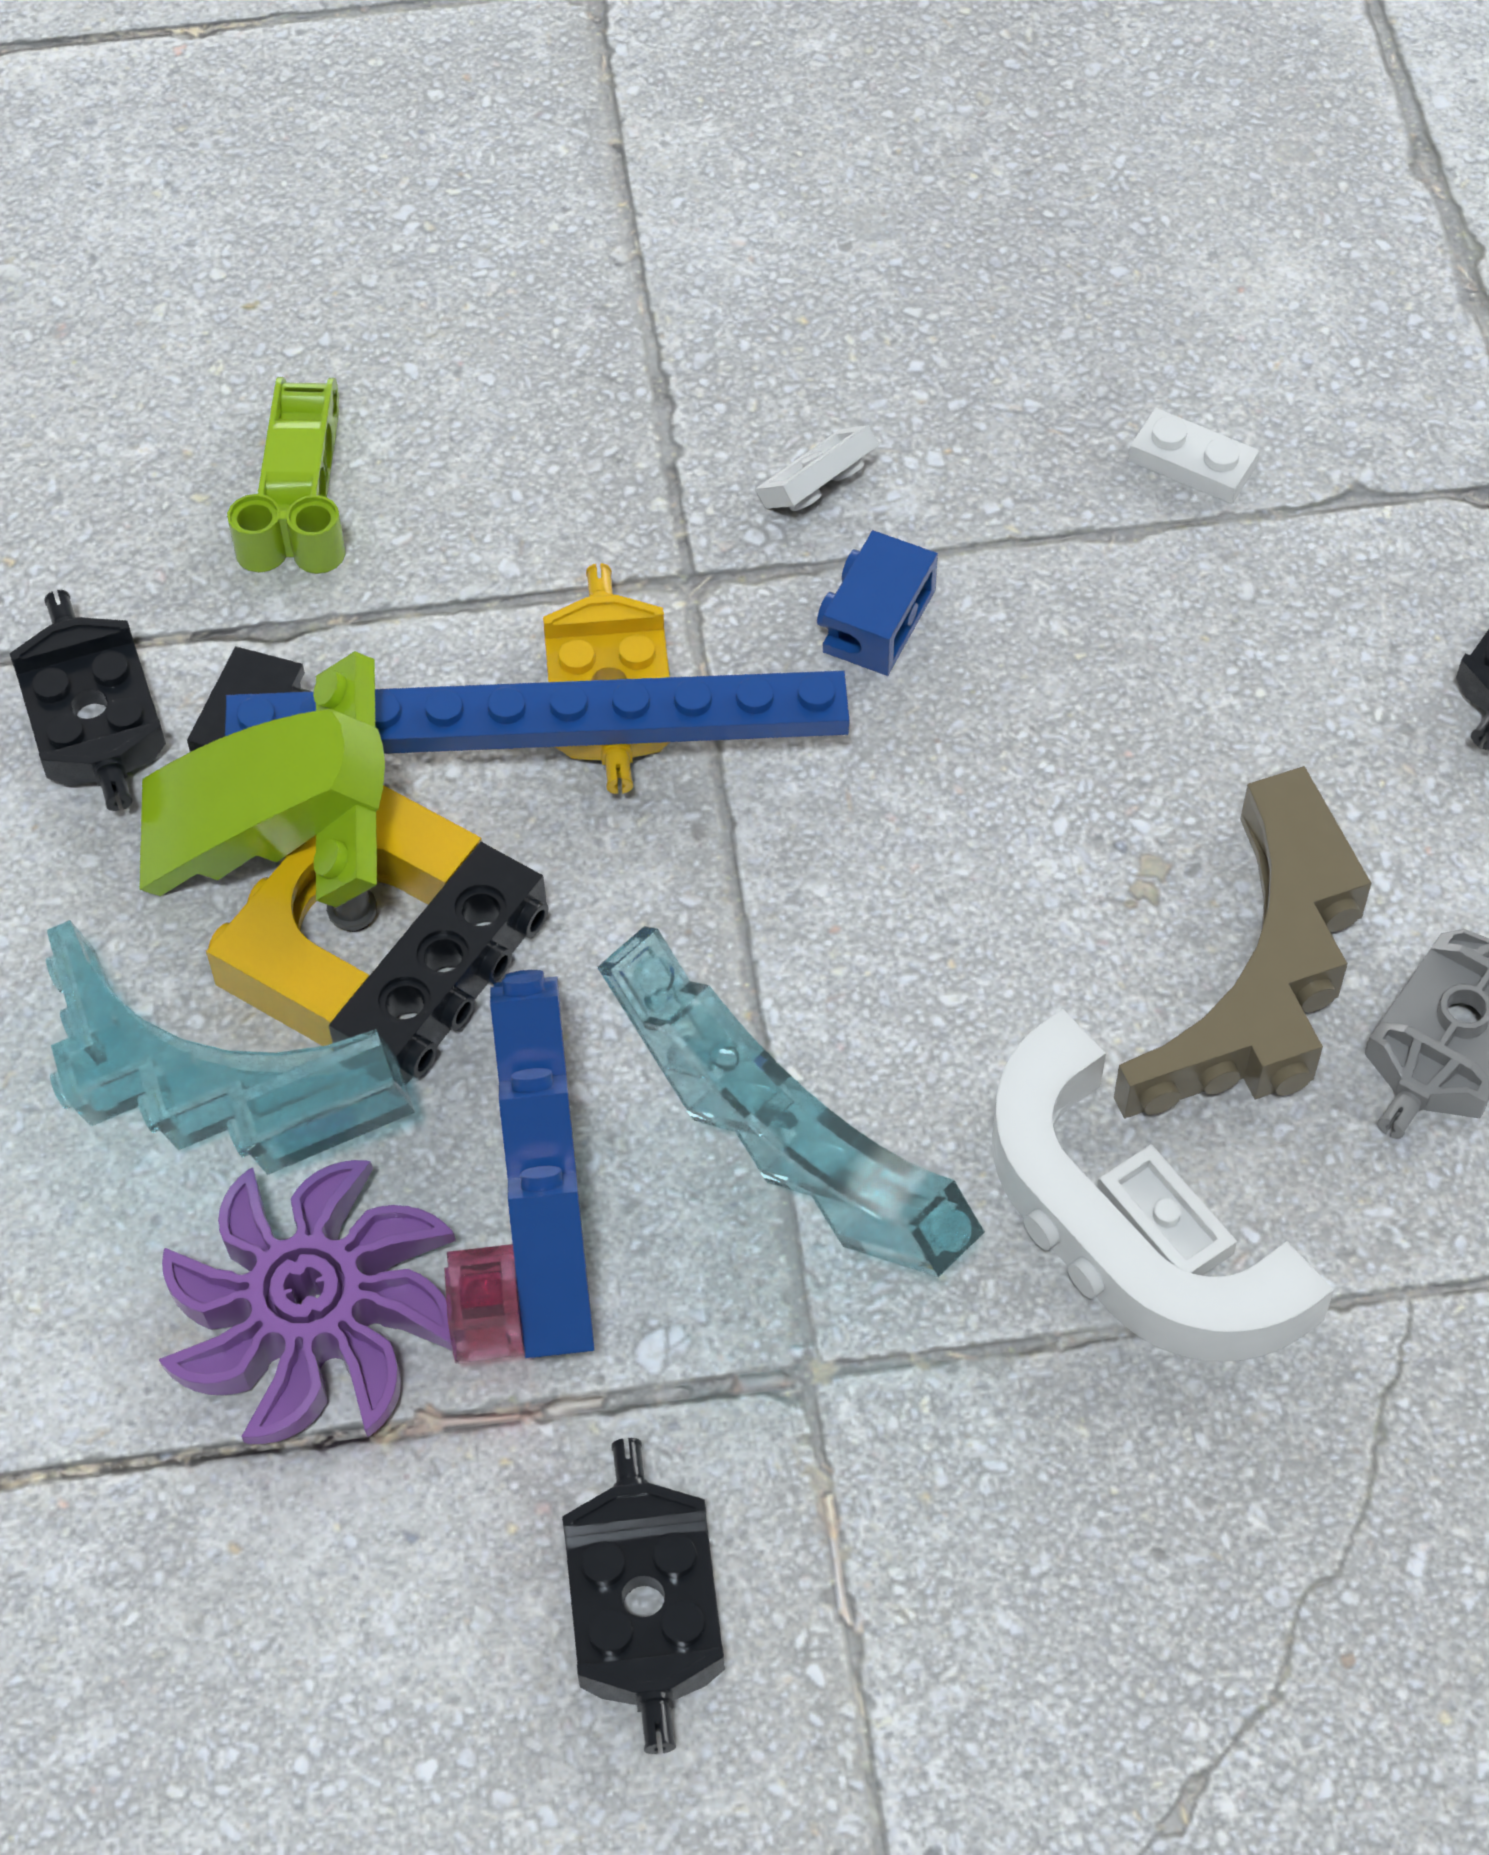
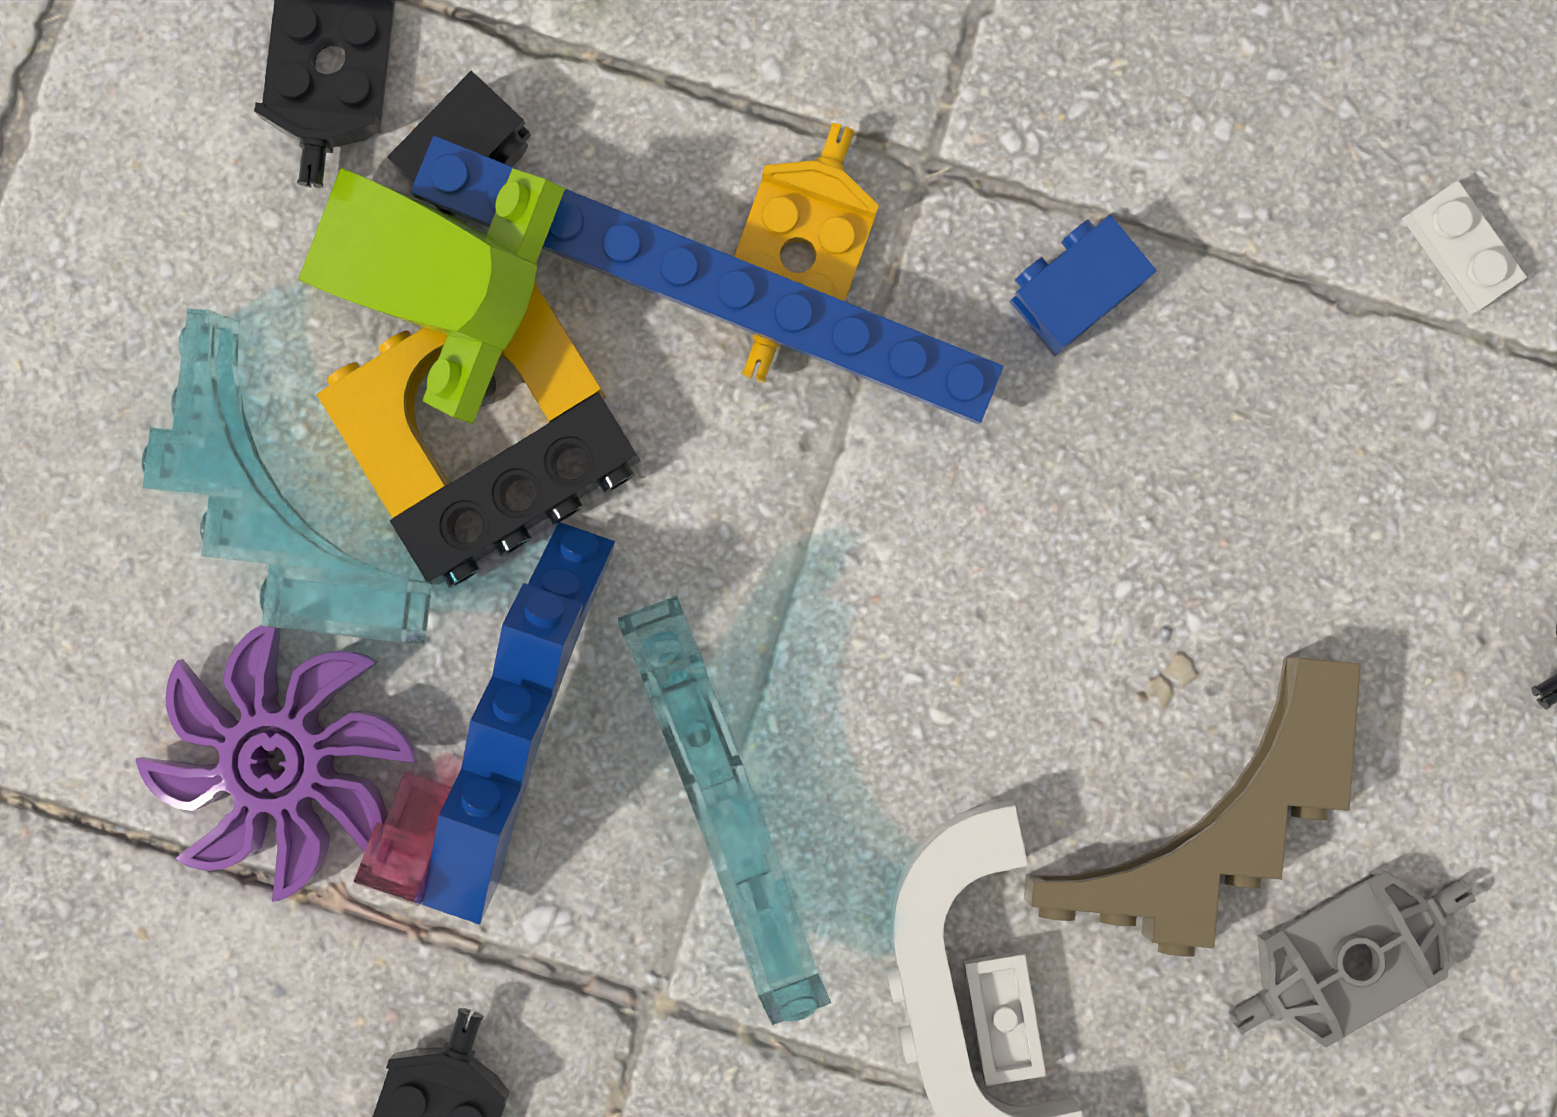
camera: 25 degrees right, 30 degrees up
(831, 459) = (1103, 101): white plate -> none

